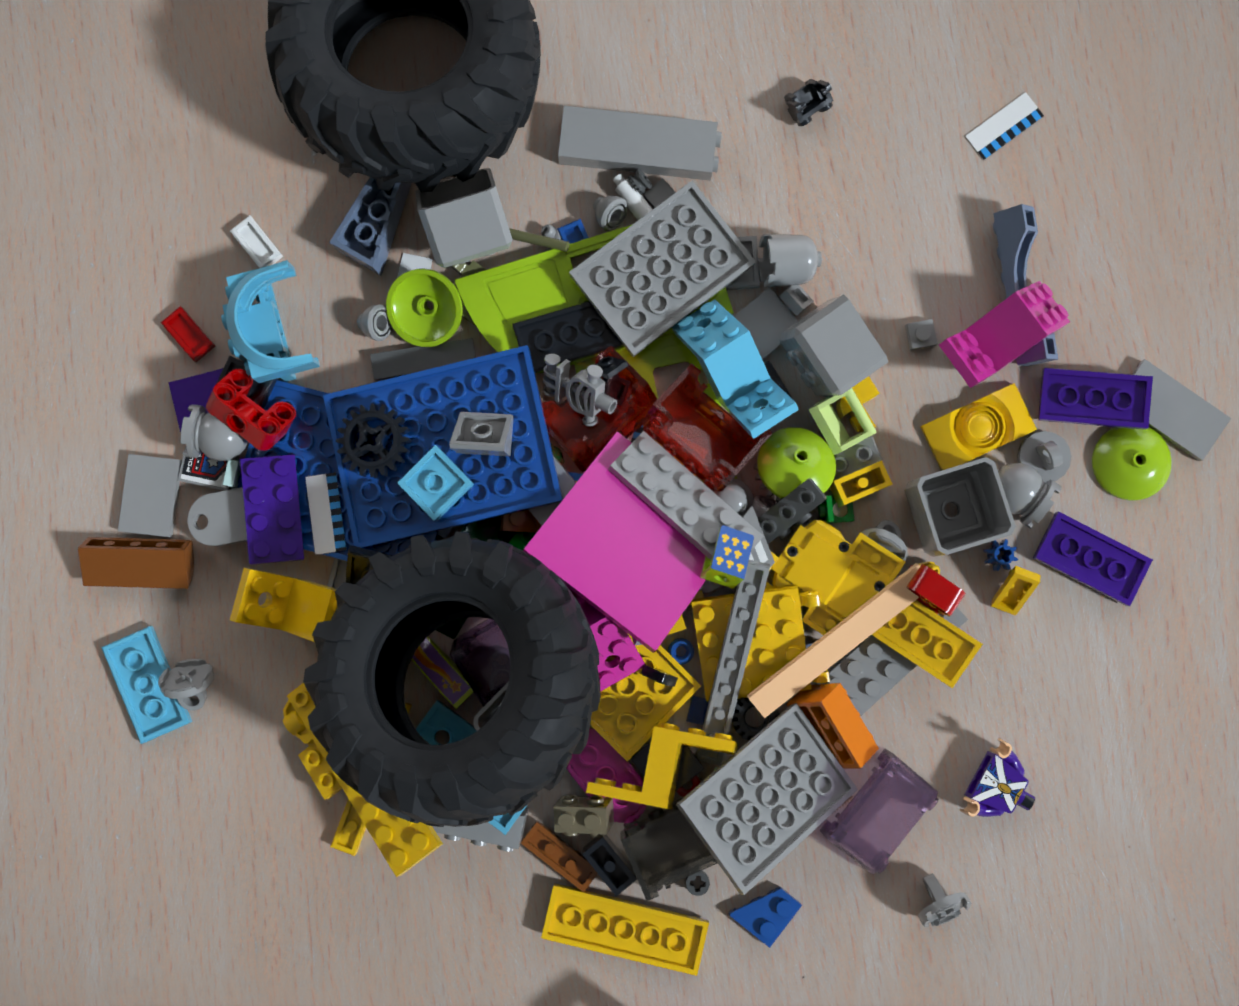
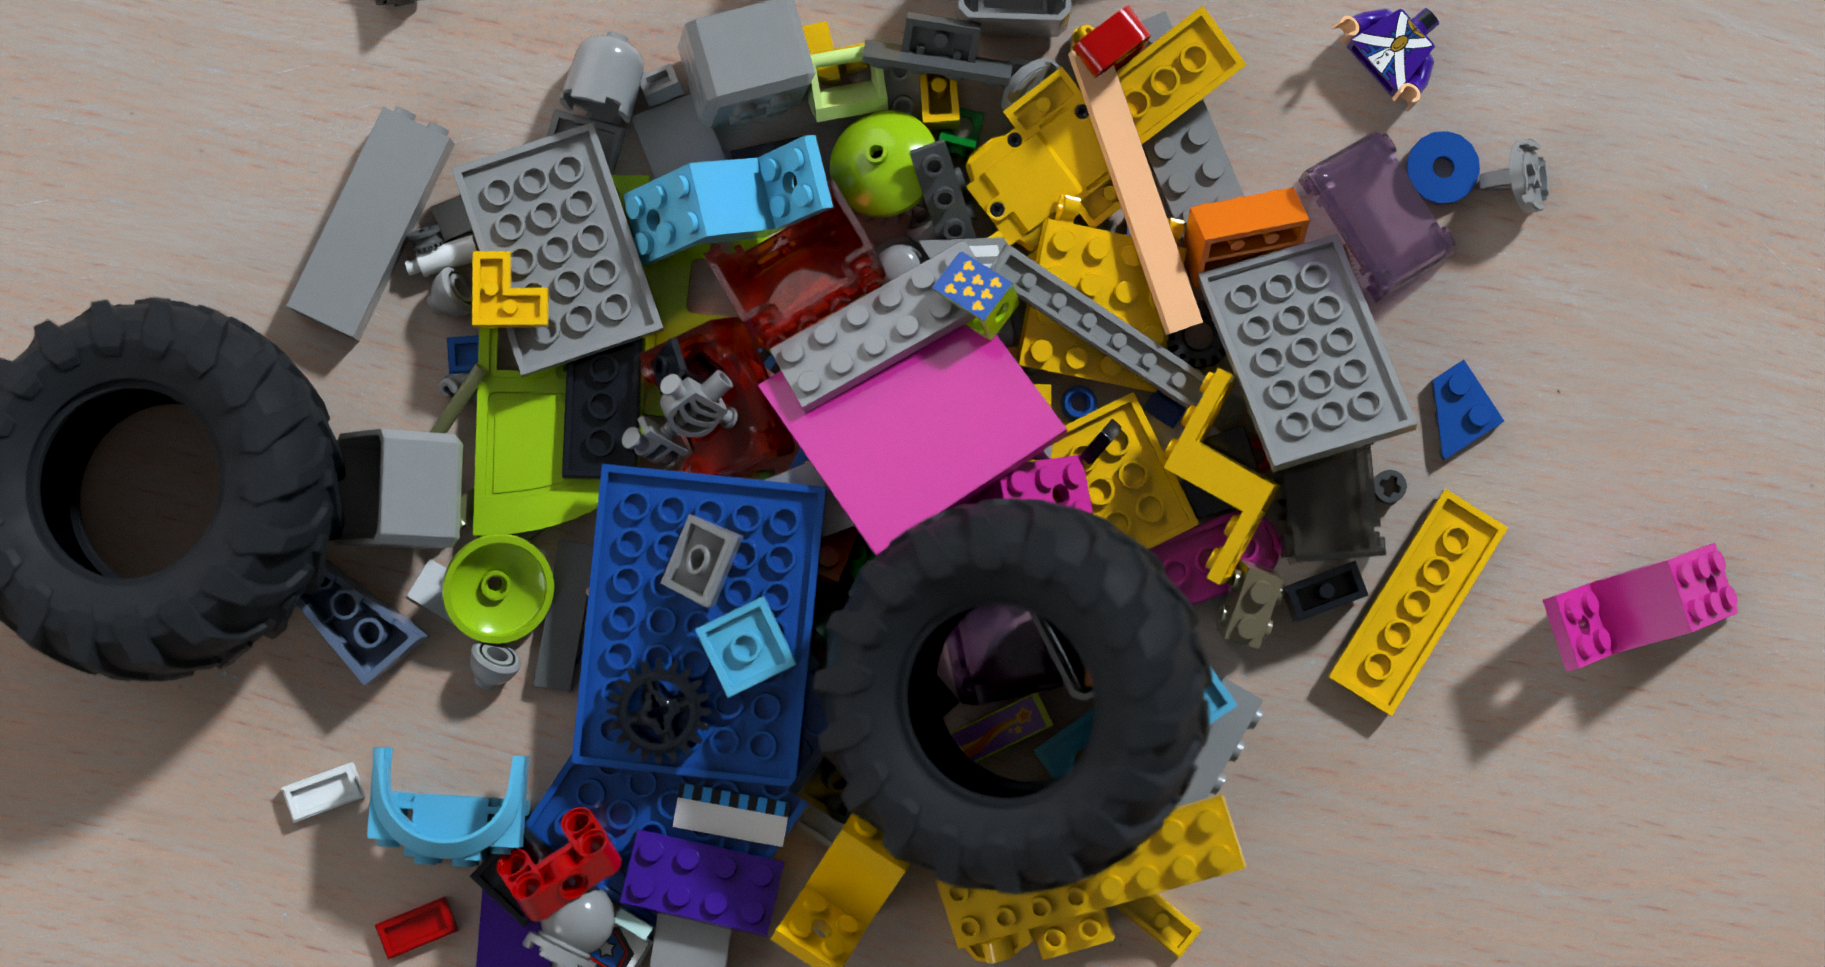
camera: 75 degrees left, 0 degrees up
(559, 856) = (1294, 655): dark orange plate -> none
(611, 239) = (497, 303): none -> yellow plate
(888, 474) = (940, 48): none -> dark grey bracket
(942, 853) = (1453, 149): none -> blue tile

